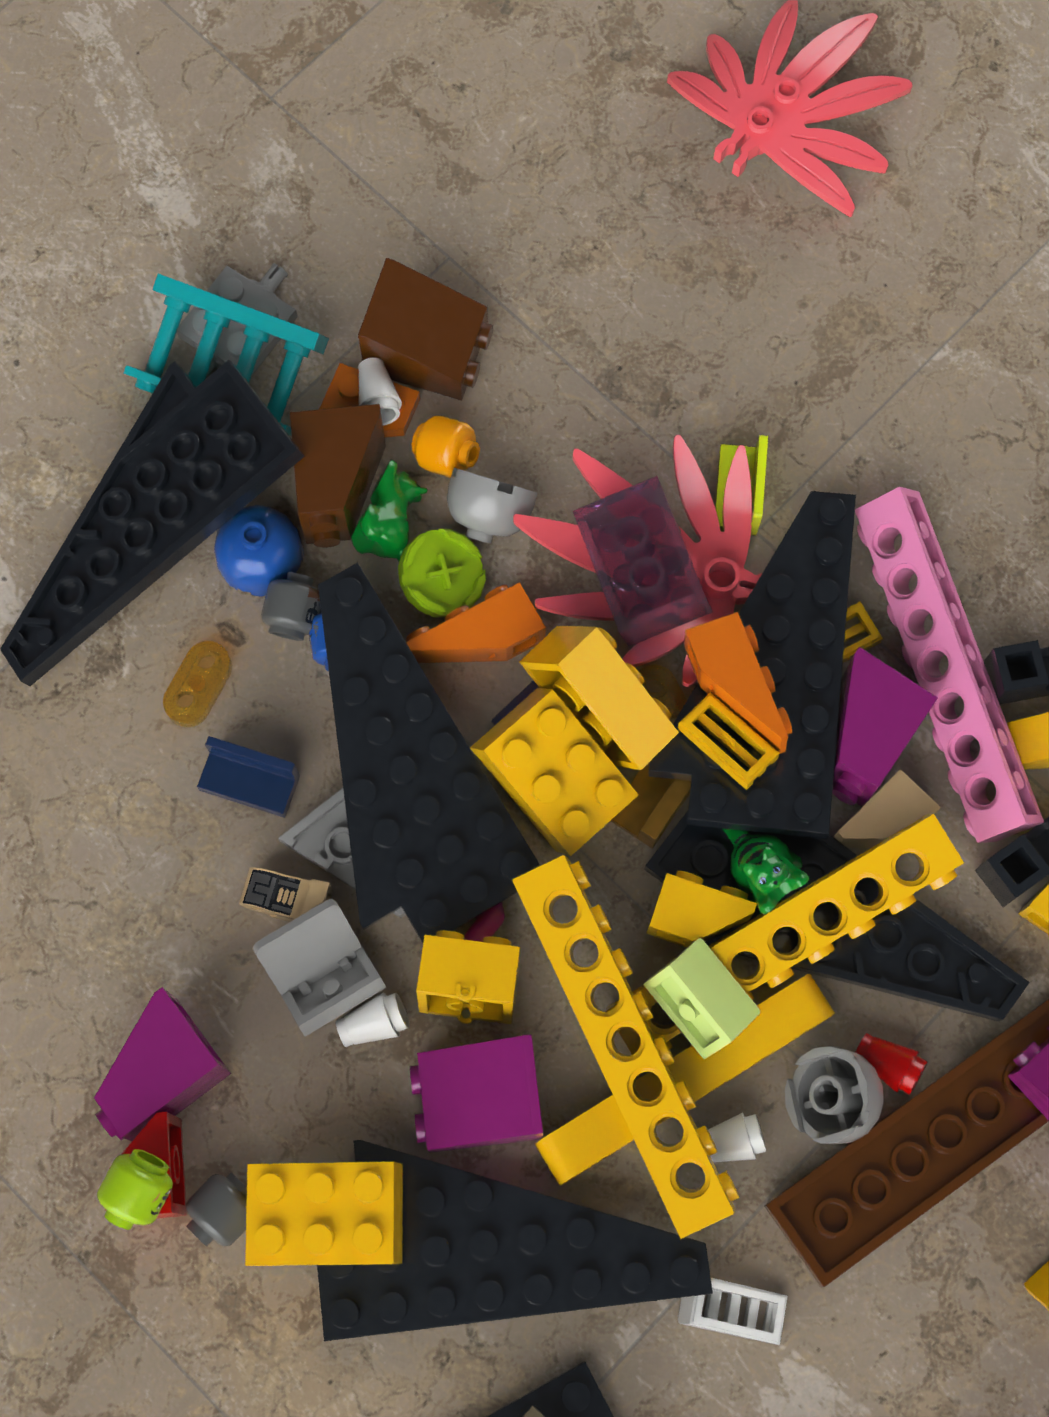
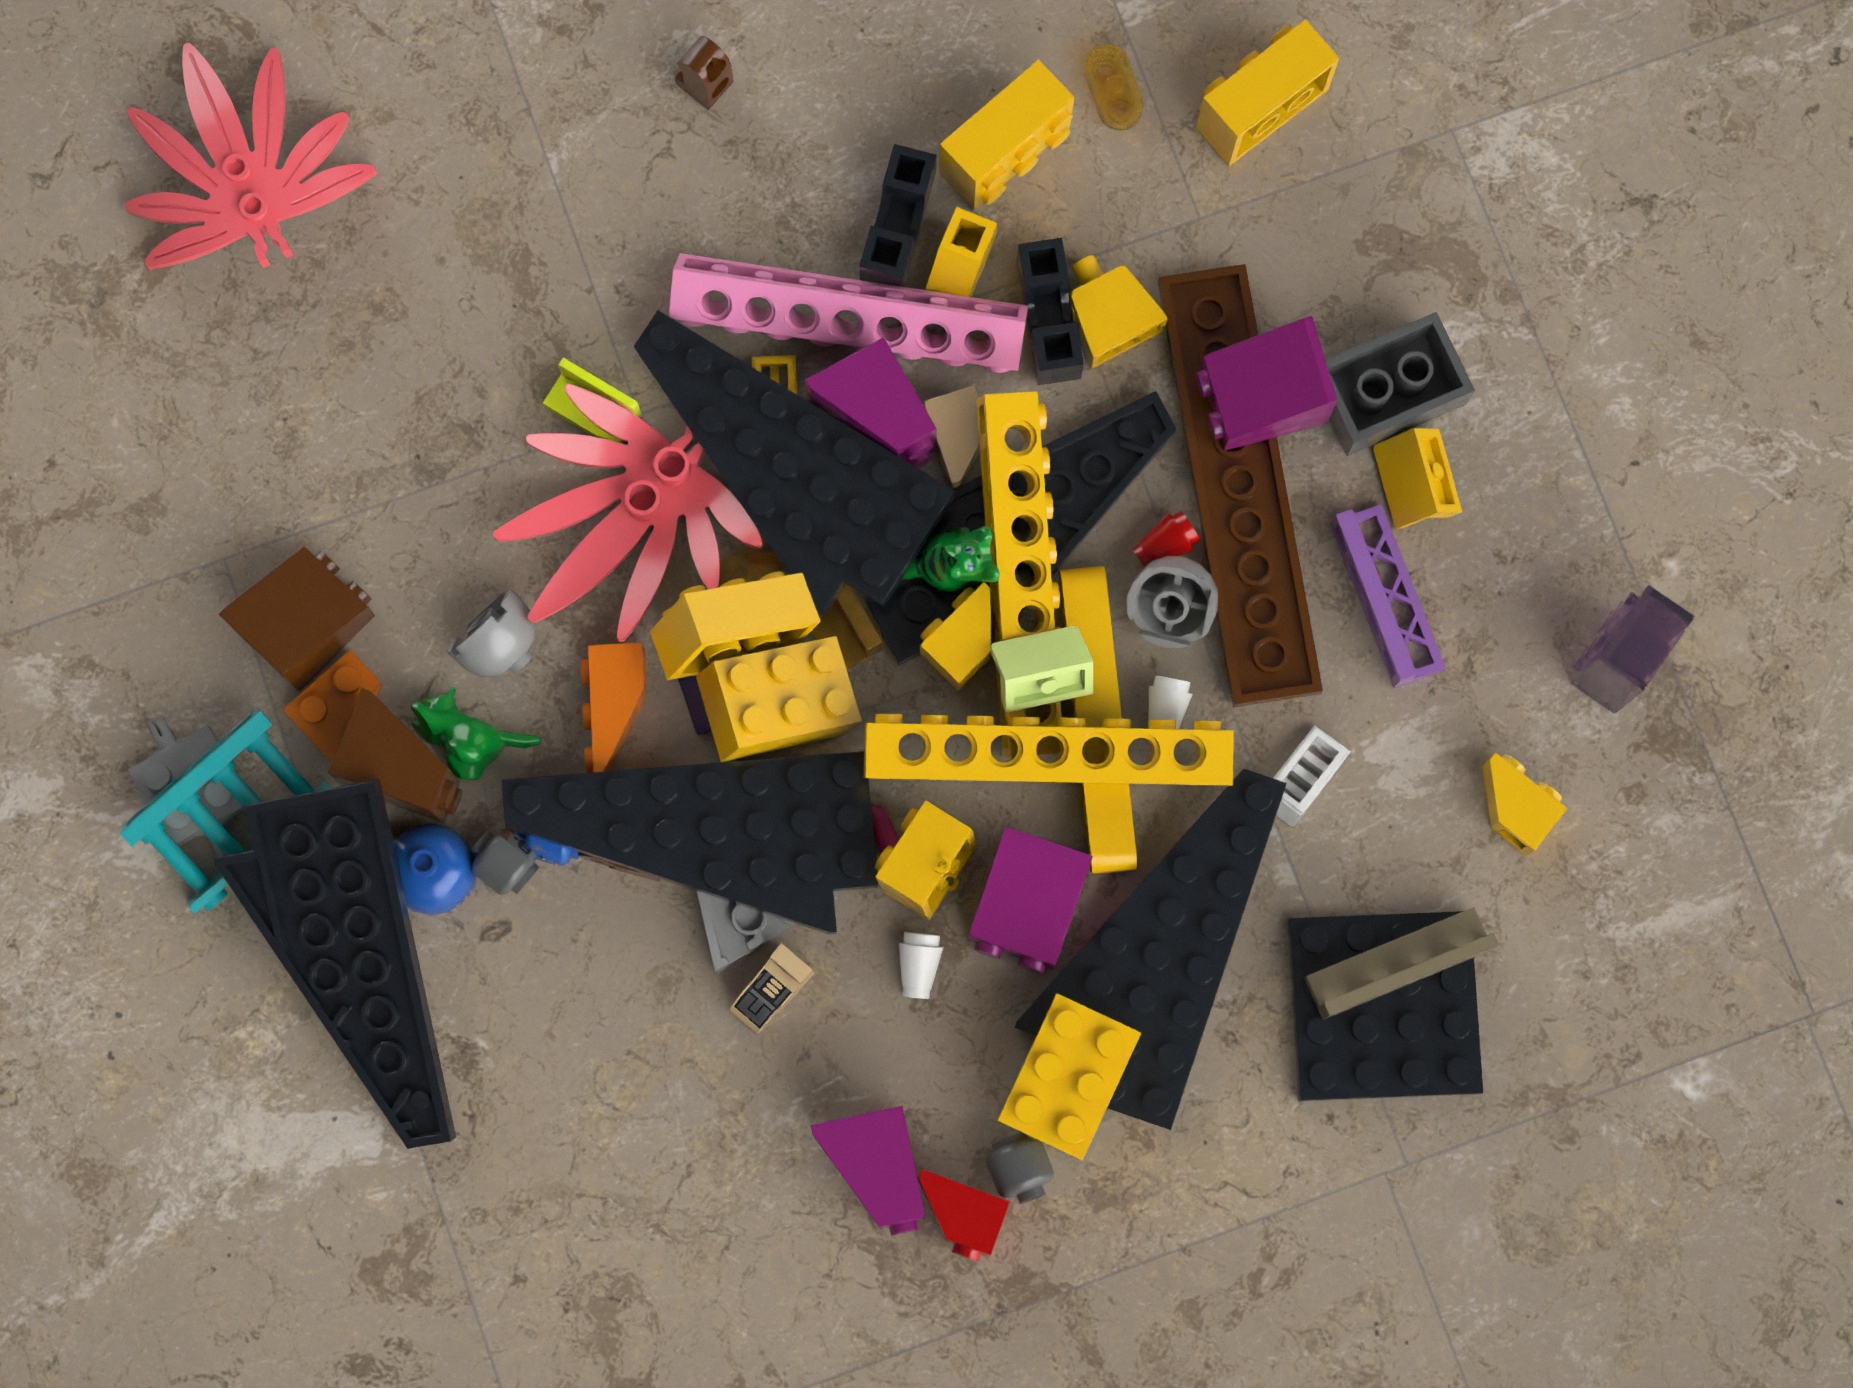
camera: 65 degrees left, 5 degrees up
(135, 1189) = (978, 1220): lime head -> none
(199, 682) = (530, 981): clear yellow plate -> none
(248, 777) = (644, 974): dark blue panel -> none
(318, 966) = (852, 986): light grey bracket -> none
(378, 388) = (335, 686): white cone -> none
(441, 572) = (539, 711): lime tile -> none
(445, 445) = (419, 650): light orange head -> none
(642, 561) = (629, 526): clear purple brick -> none
(728, 668) = (772, 501): orange slope -> none
(755, 766) = (837, 550): yellow tile -> none
(941, 1295) = (1377, 598): none -> medium lavender fence

